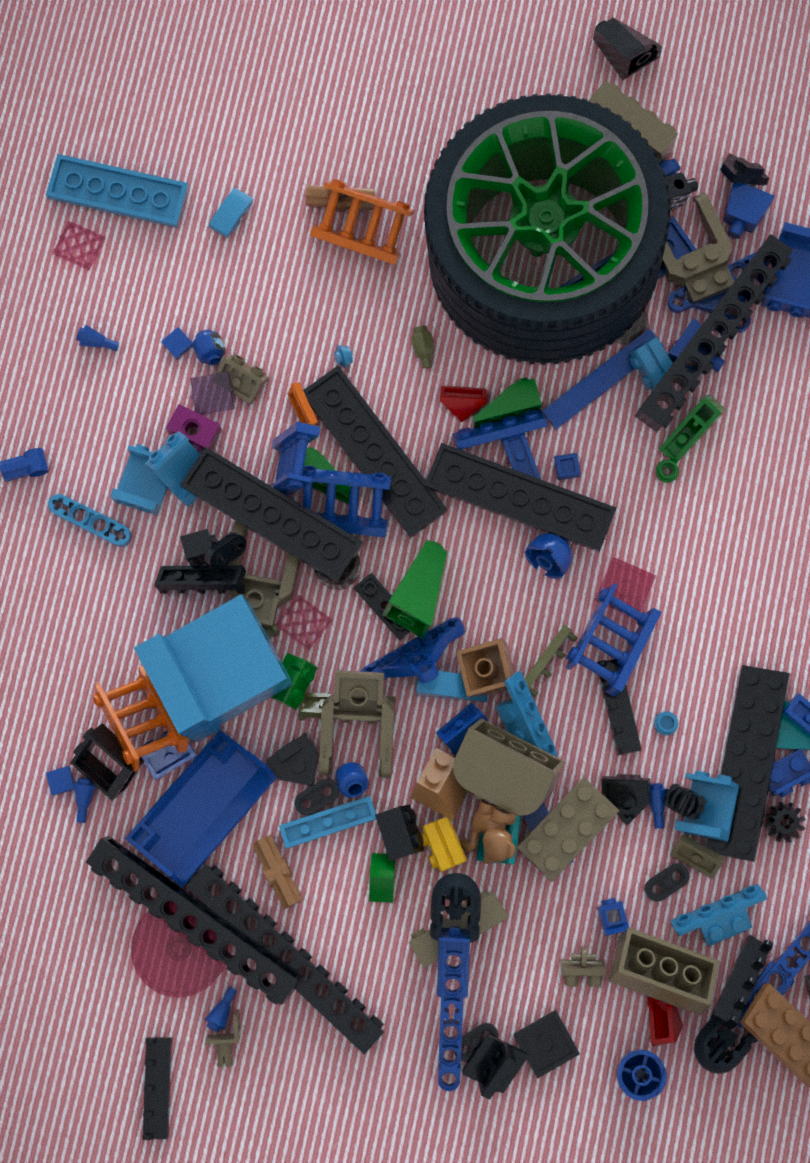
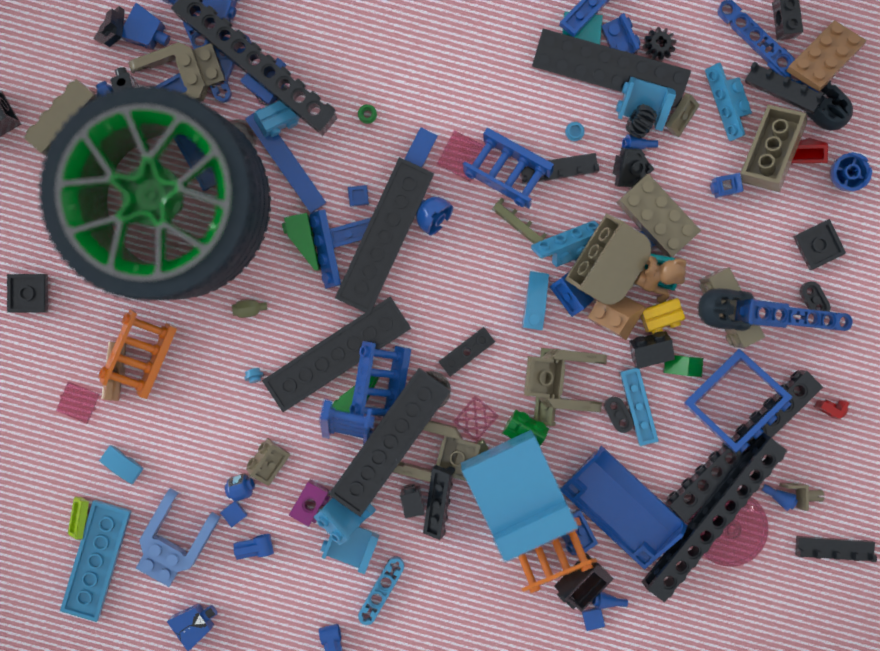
camera: 90 degrees left, 10 degrees up
(44, 303) = (192, 624): none -> blue torso
(63, 238) = (130, 588): clear pink window -> none
(91, 338) = (225, 585): blue cone -> none
(122, 265) = (163, 558): none -> medium blue plate
(139, 373) = (258, 546): none -> blue piece
(166, 168) = (78, 517): none -> lime plate
(212, 393) = (279, 486): clear purple piece -> none
(225, 551) = (419, 481): black plate -> none
(277, 871) = (675, 448): medium nougat piece -> none
(295, 761) = (588, 429): black plate -> none
(301, 160) = (77, 402): none -> clear pink piece
(301, 404) = (296, 411): orange tile -> none
(337, 1068) = (831, 409): none -> red bracket
(351, 780) = (608, 386): blue head -> none
(367, 916) = (711, 382): none -> blue window
(418, 592) = (458, 323): green slope -> none
(419, 655) = (507, 320): blue beam -> none
(426, 97) = (27, 293): none -> black plate
(463, 400) = (297, 278): red slope -> none
(485, 668) = (524, 273): medium nougat slope -> none
(494, 1065) = (836, 286): black bracket -> none
(583, 965) = (763, 211): dark tan hips -> none
(631, 536) = (421, 147): none -> blue slope
(666, 882) = (701, 141): black plate -> none
(692, 428) = (333, 89): green slope -> none

